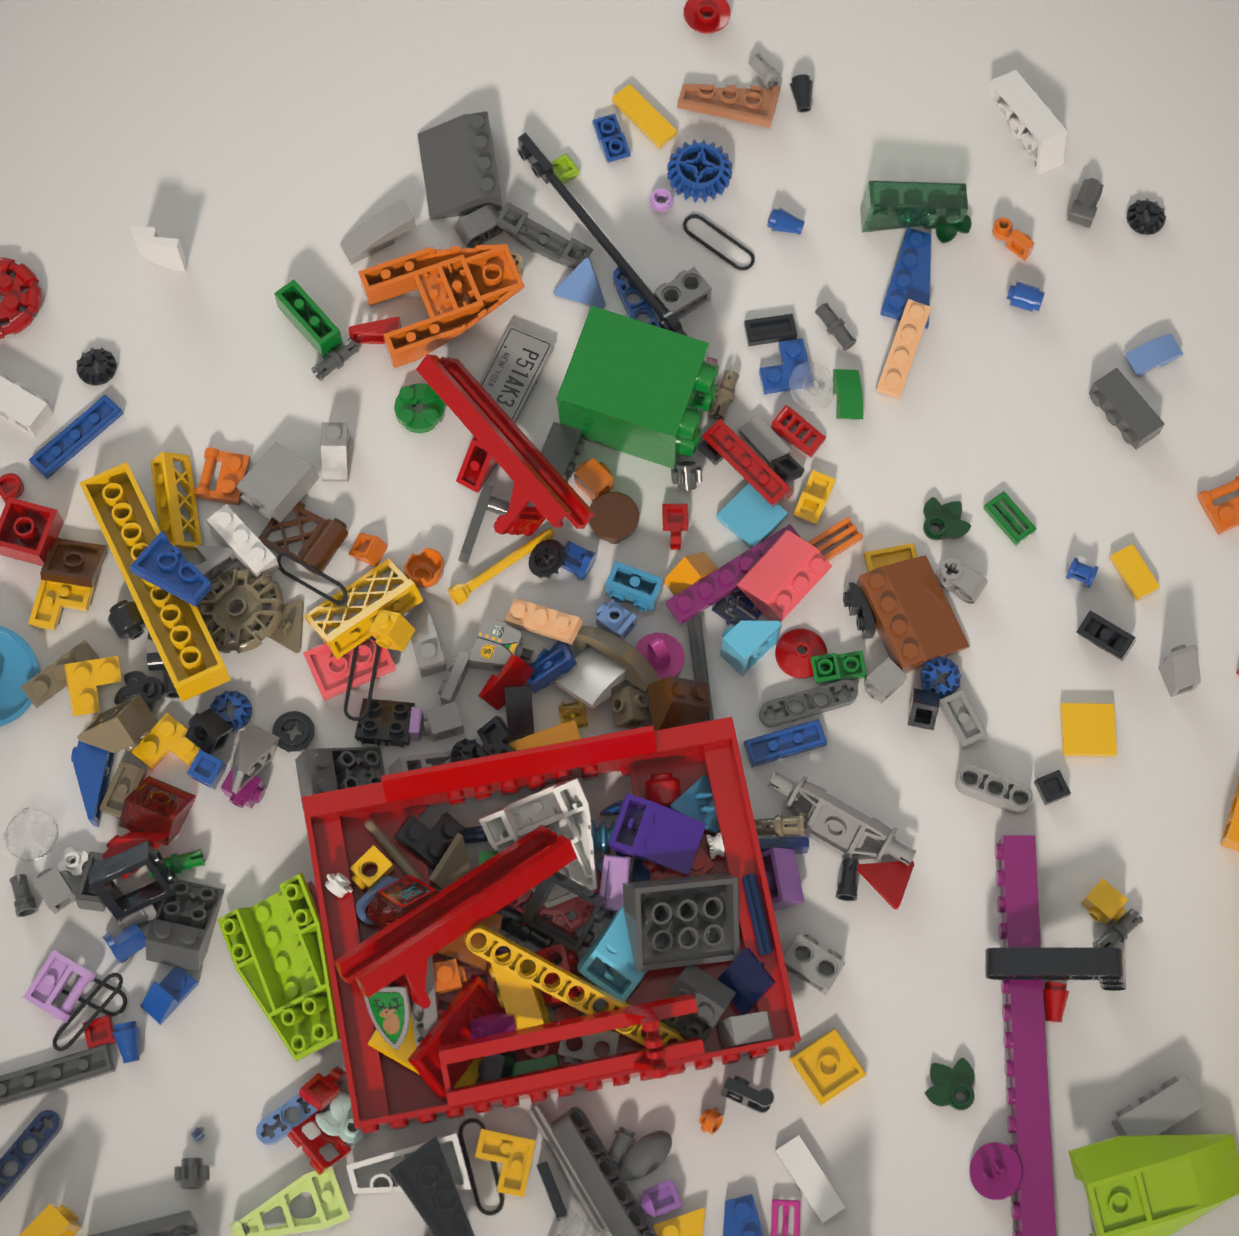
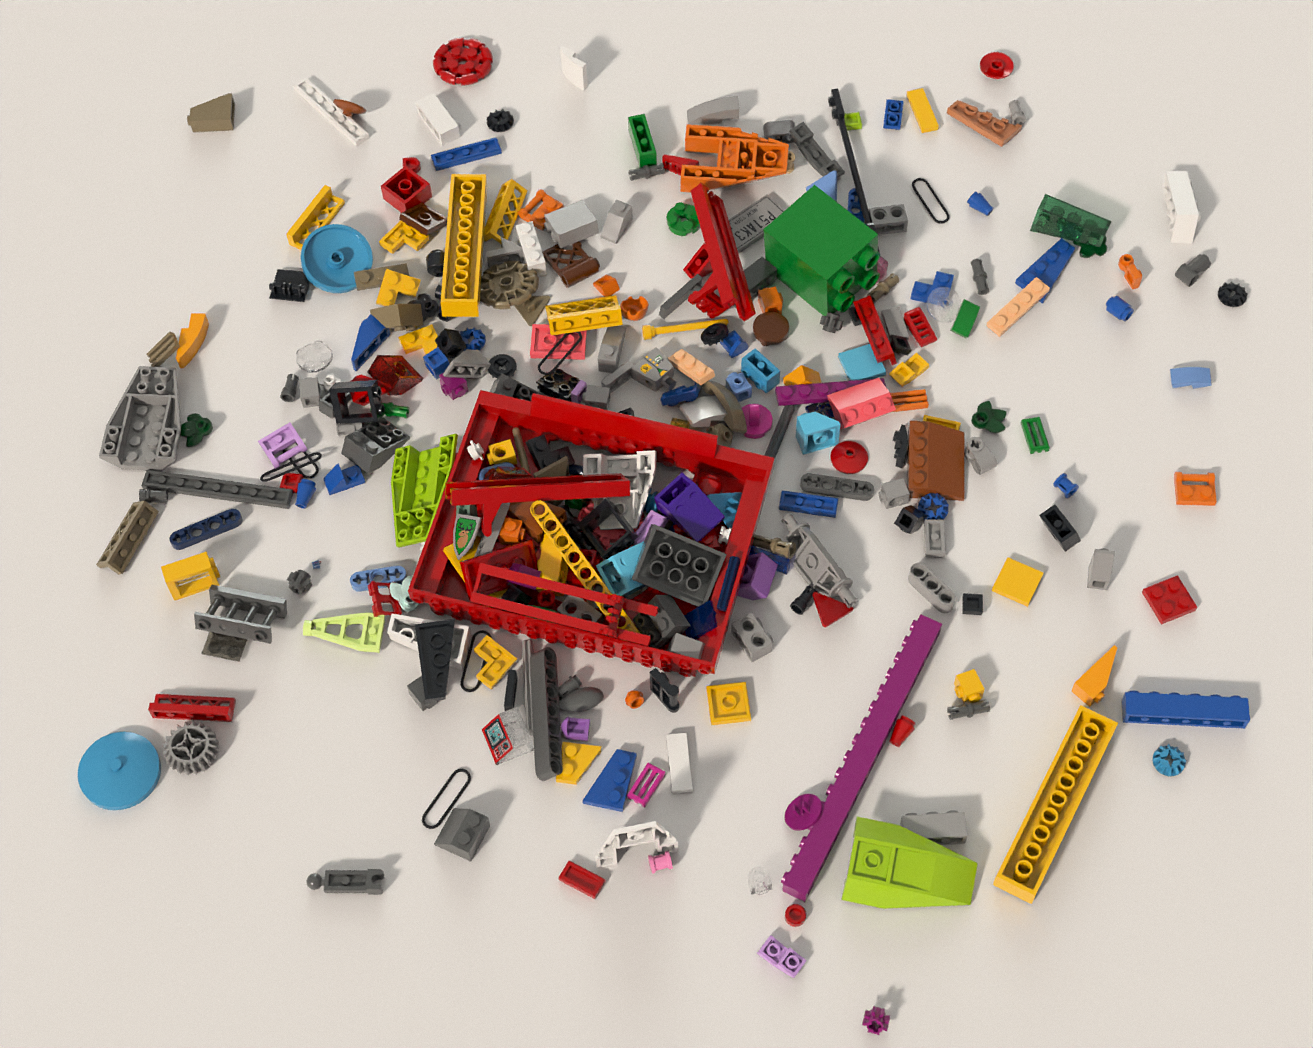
camera: 30 degrees right, 10 degrees down
(125, 780) = (386, 348): dark tan plate -> none
(126, 943) = (334, 438): blue tile -> none
(169, 570) = (475, 238): blue wing -> none
(316, 571) = (547, 276): black piece -> none
(322, 1090) = (401, 568): red plate -> none
(391, 630) = (592, 330): yellow brick -> none
(459, 166) = (787, 93): dark grey slope -> none
(513, 673) = (647, 392): red slope -> none
(519, 710) = (648, 406): black tile -> none
(661, 194) = (905, 161): lavender plate -> none
(675, 520) = (809, 345): red plate -> none
(677, 702) = (750, 439): reddish brown slope -> none
(713, 175) = (940, 153): blue gear -> none
(770, 329) = (935, 262): black tile -> none
(802, 92) = (1035, 132): black cone -> none
(839, 667) = (865, 472): green slope -> none
(948, 1082) = (803, 748): dark green plate -> none
(1099, 964) = (917, 702): black beam -> none
(1126, 408) = (1151, 401): dark grey brick -> none
(1134, 572) = (1103, 501): yellow tile -> none

